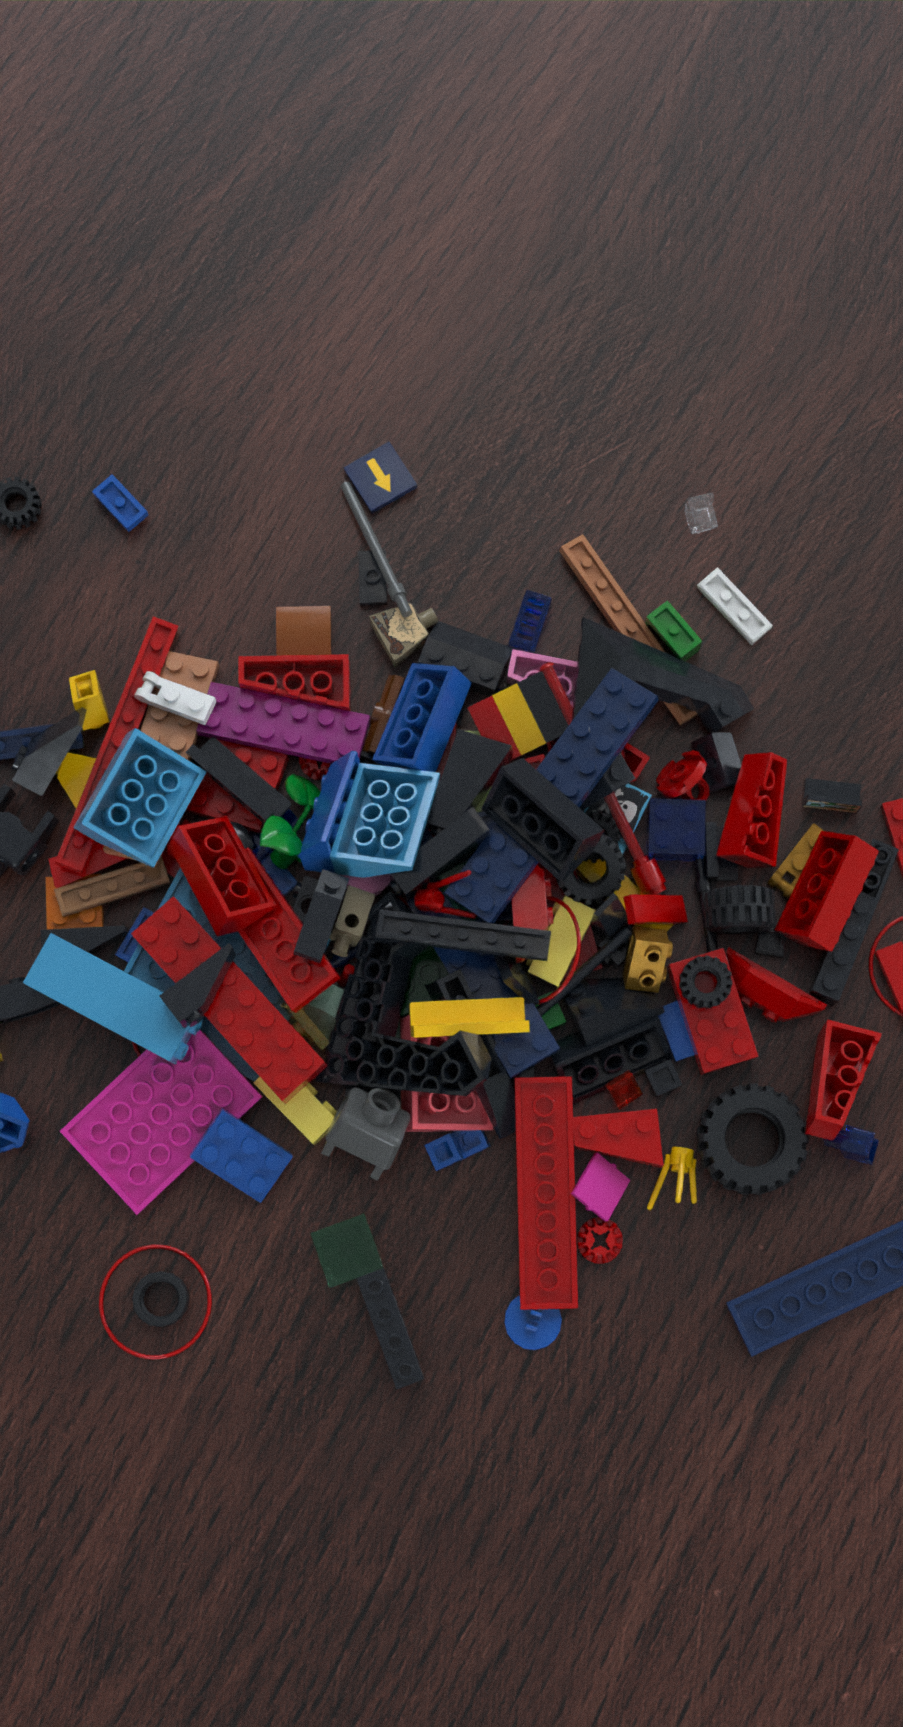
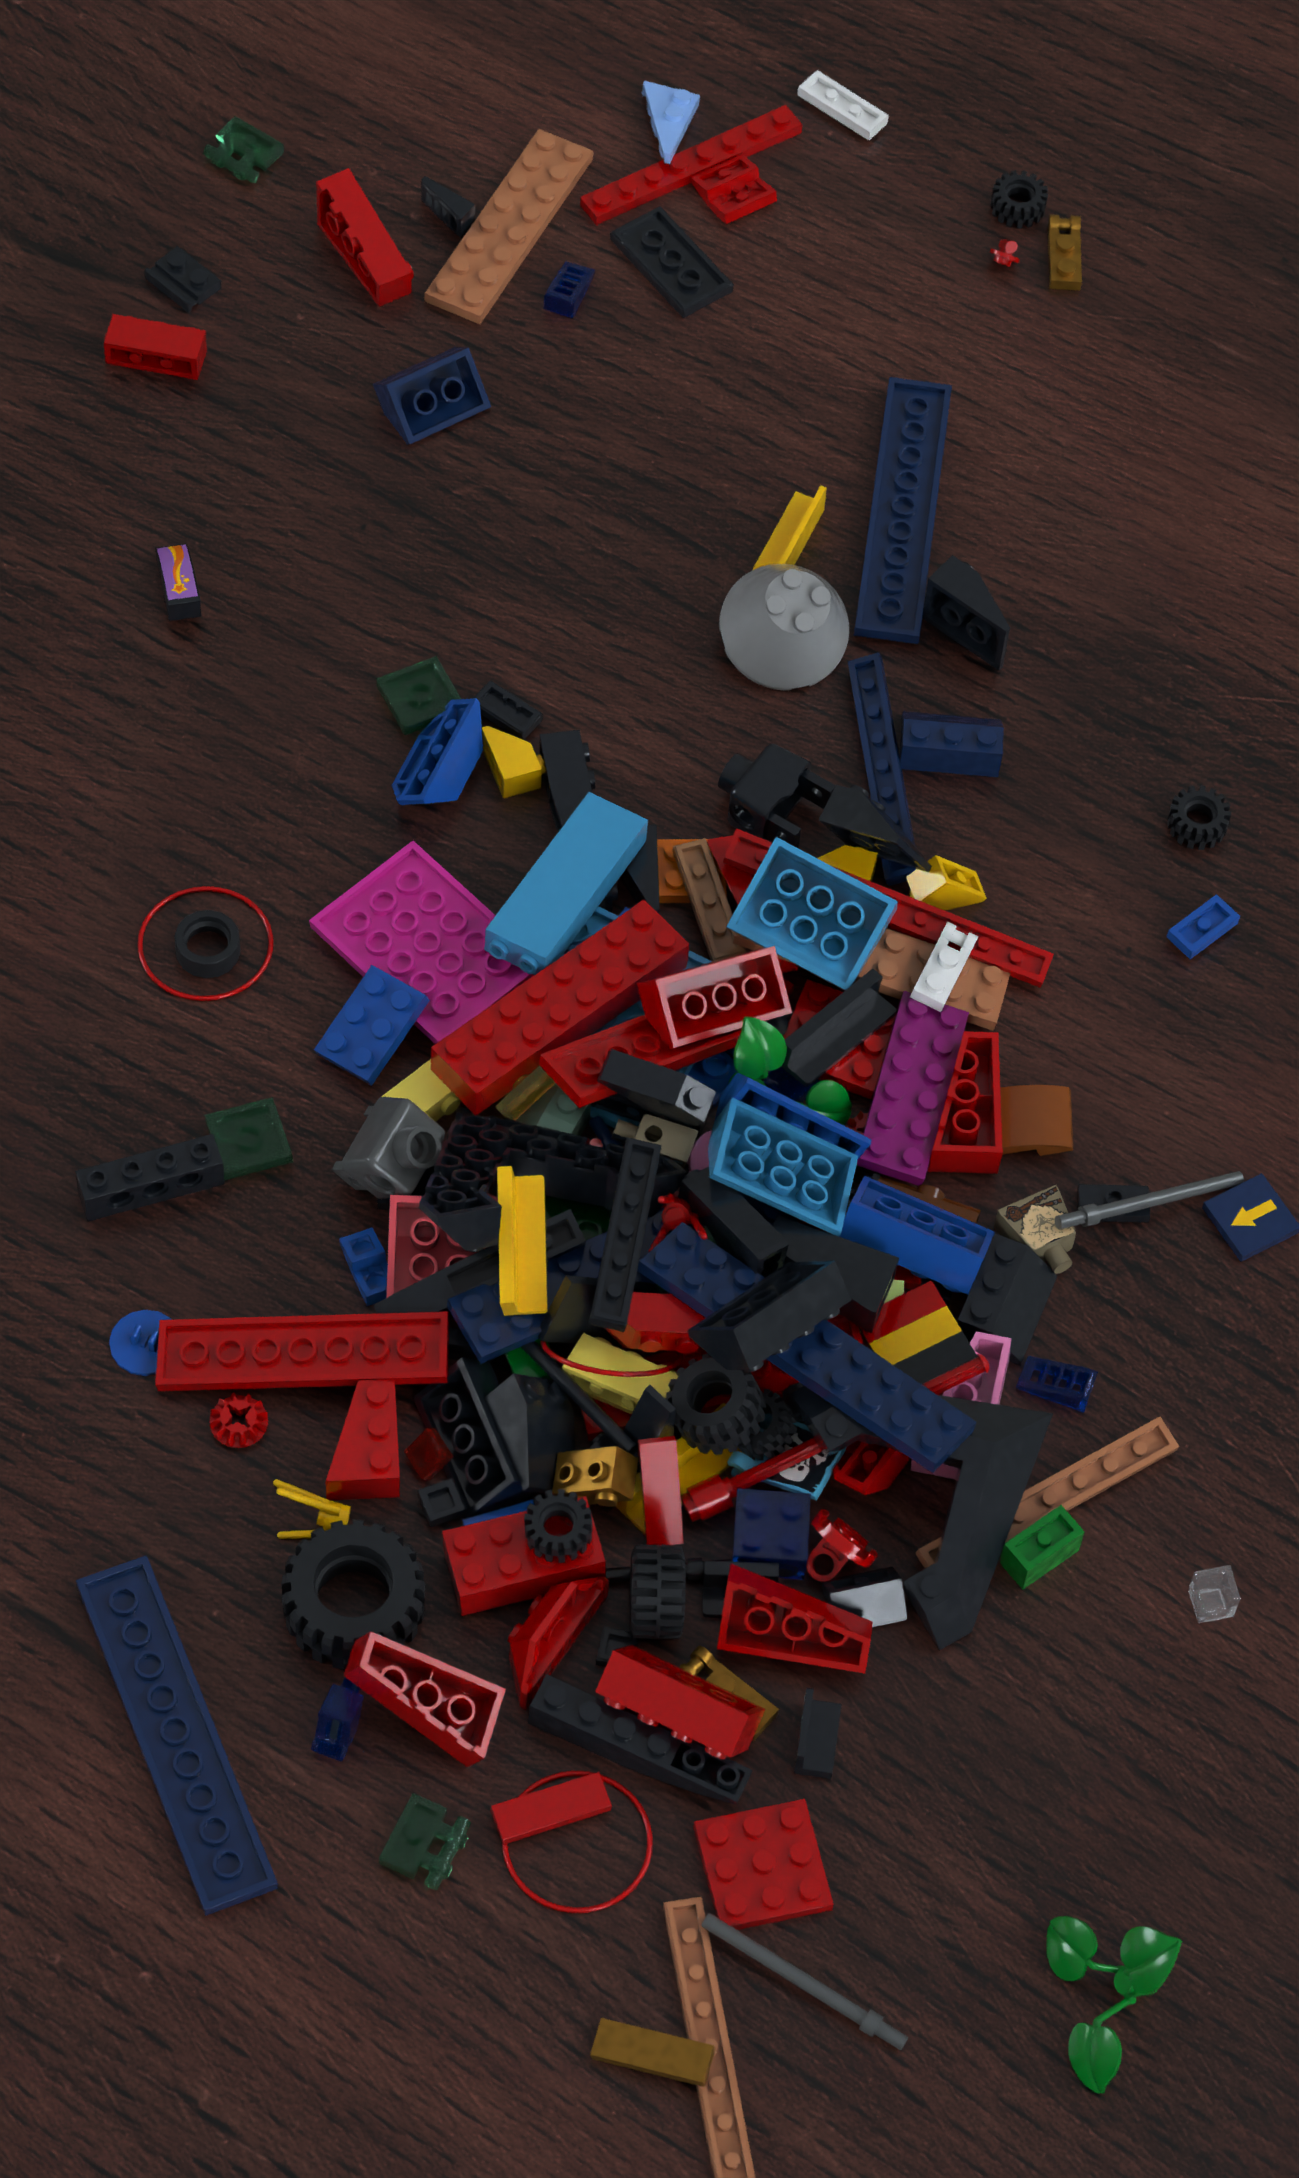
camera: 85 degrees right, 20 degrees down
(195, 992) = (569, 953): black slope -> none
(600, 1187) = (305, 1417): dark pink piece -> none
(734, 606) = (1085, 1635): white tile -> none

